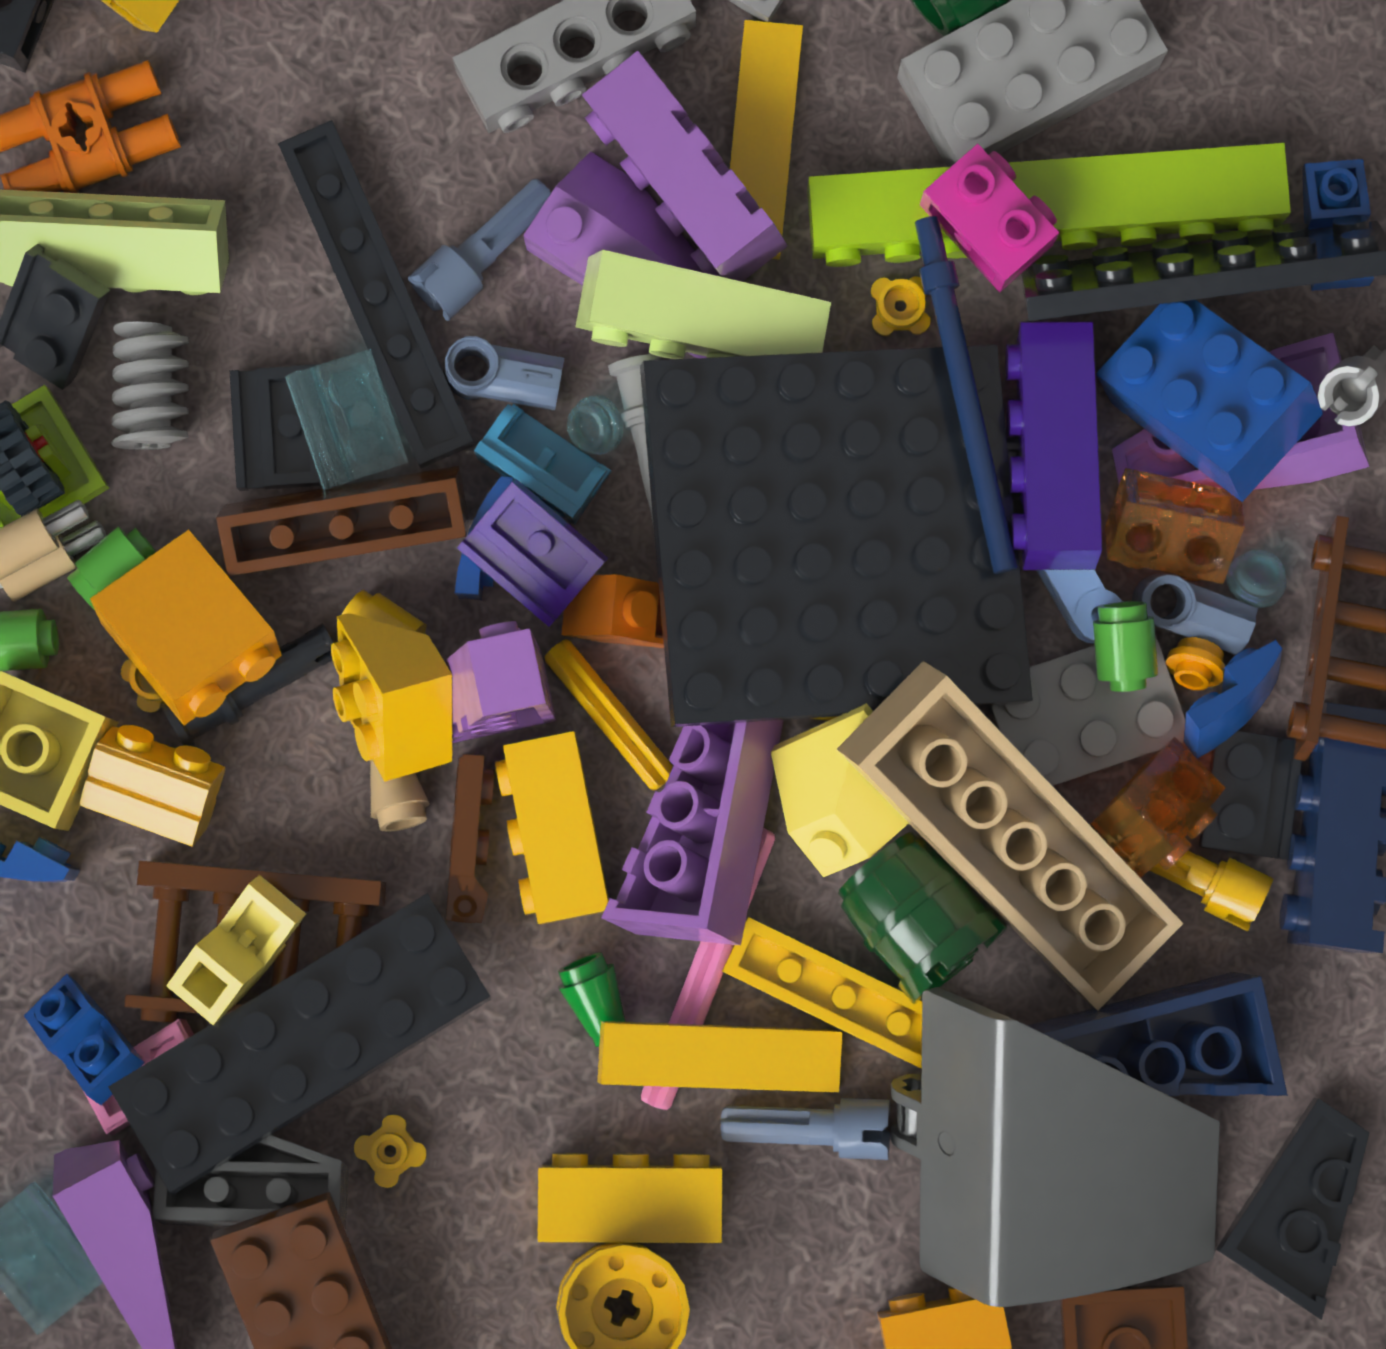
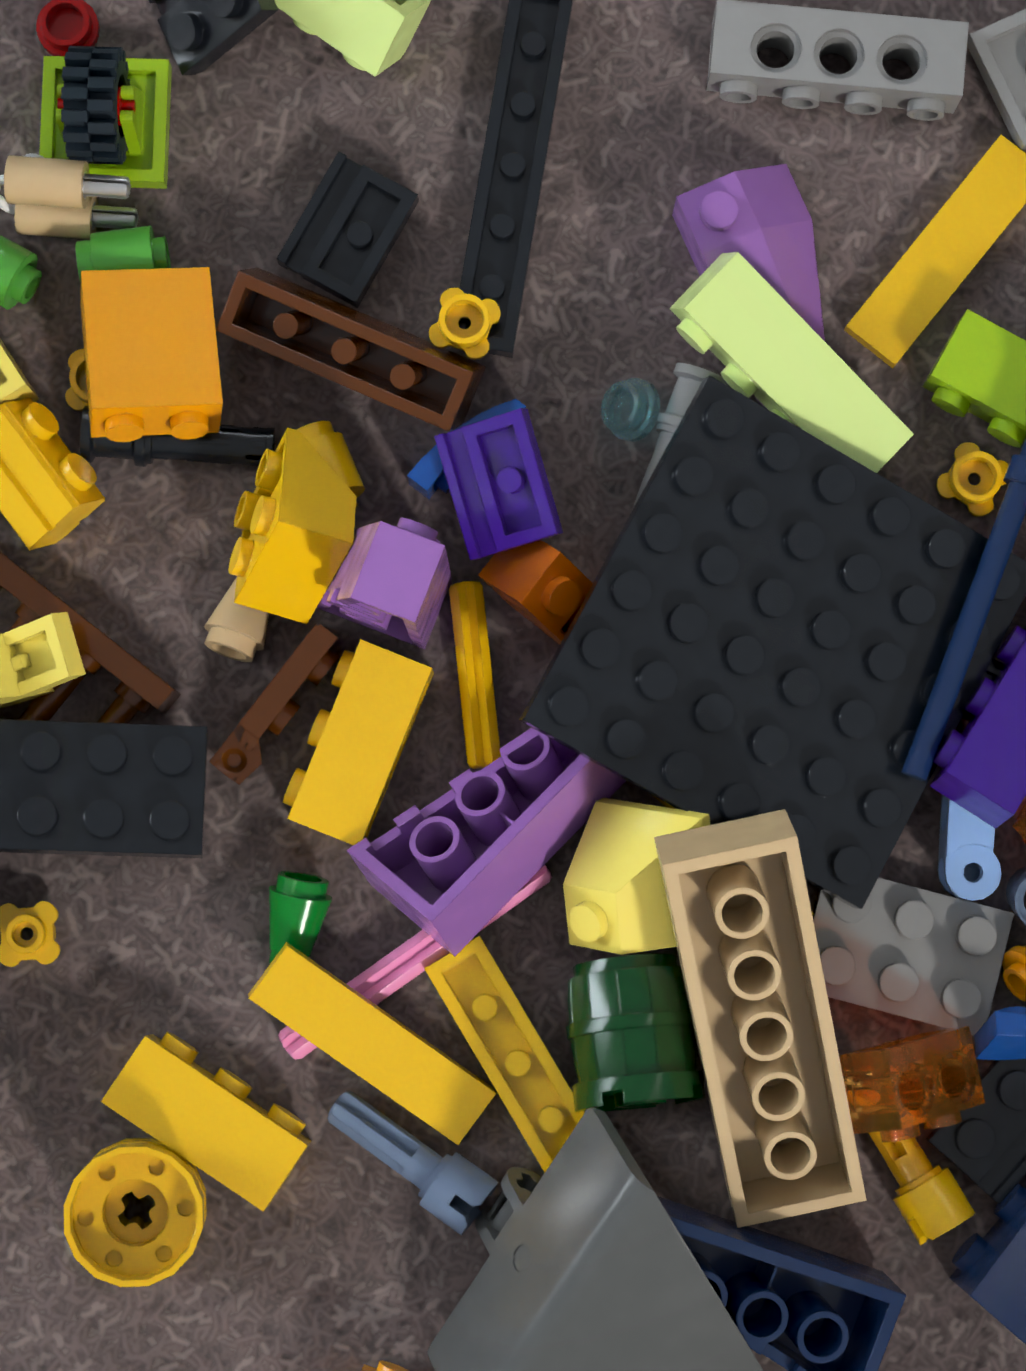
camera: 35 degrees right, 0 degrees up
(148, 386) = (257, 118): light grey piece -> none
(346, 419) = (412, 258): clear light blue plate -> none
(405, 434) = (461, 305): none -> yellow plate
(454, 273) = (592, 194): sand blue piece -> none
(512, 374) = (583, 317): sand blue piece -> none
(542, 462) = (561, 411): dark azure hinge -> none
(683, 170) = (858, 232): medium lavender wedge -> none
(1125, 645) = (978, 915): bright green brick -> none

